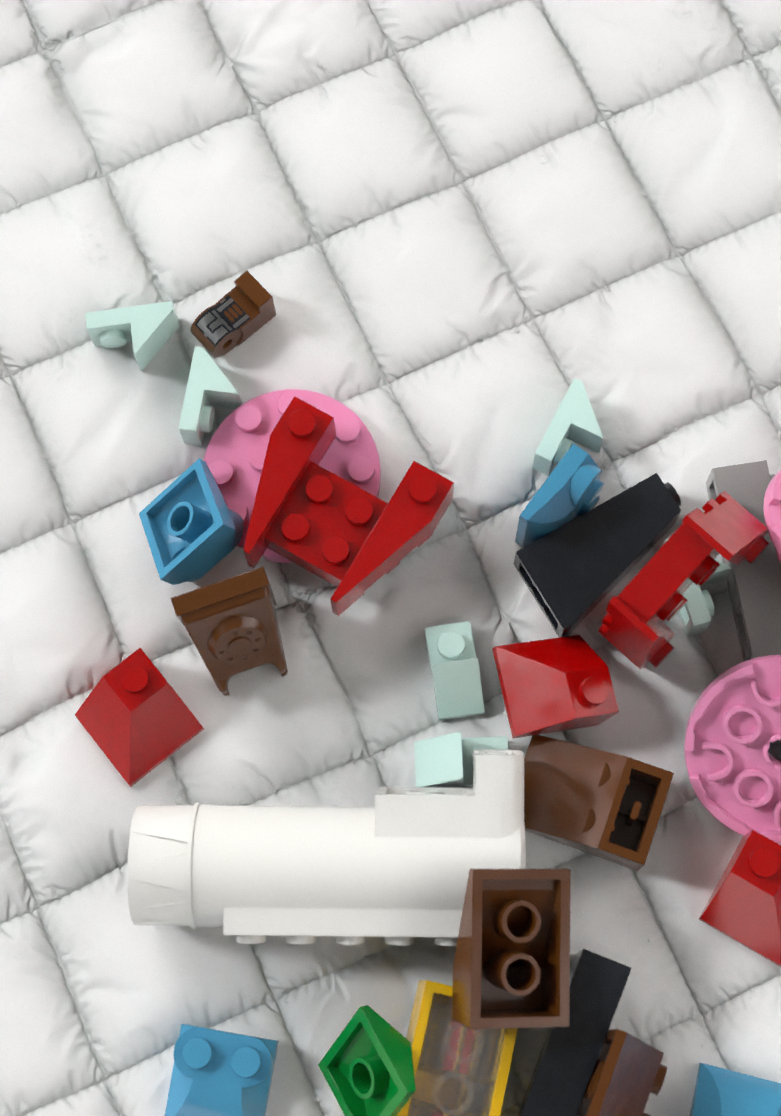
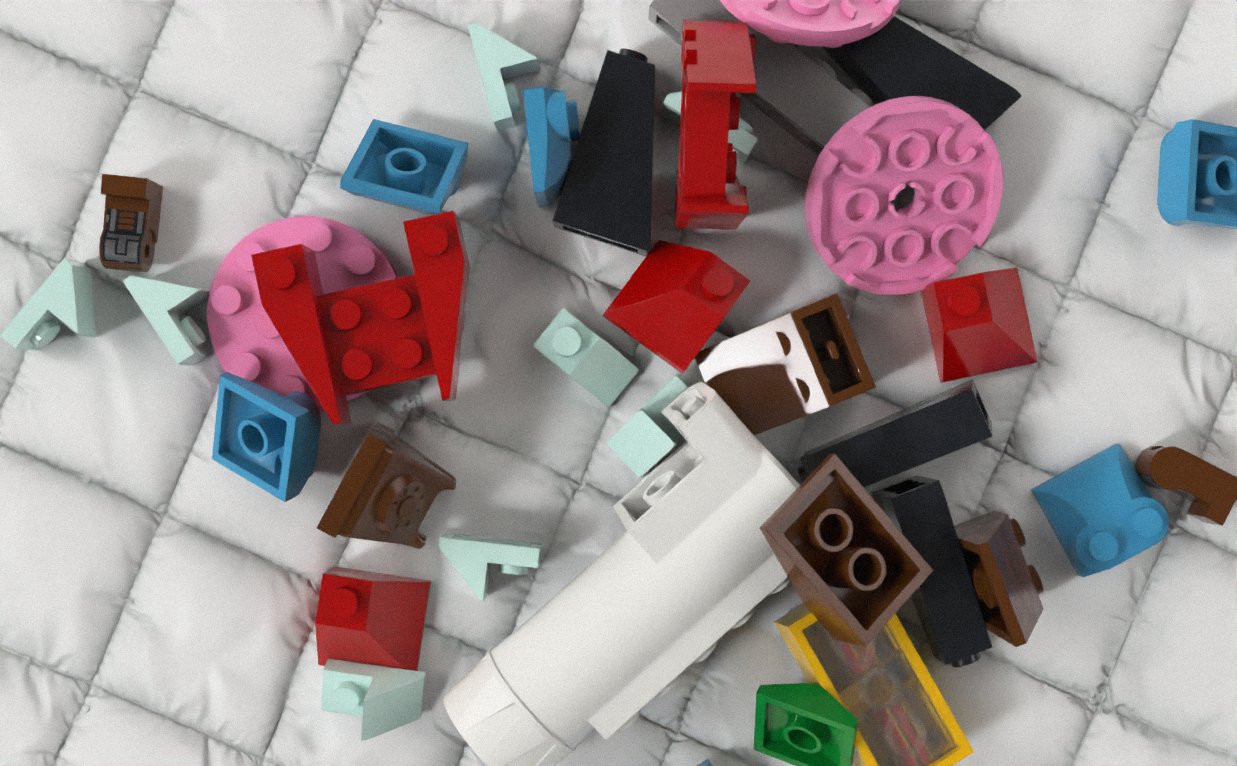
camera: 55 degrees left, 15 degrees up
(92, 768) = (377, 693): none -> light aqua slope
(250, 736) = (474, 556): none -> light aqua slope
(448, 433) = (405, 167): none -> dark azure slope
(645, 931) = (908, 436): none -> black slope

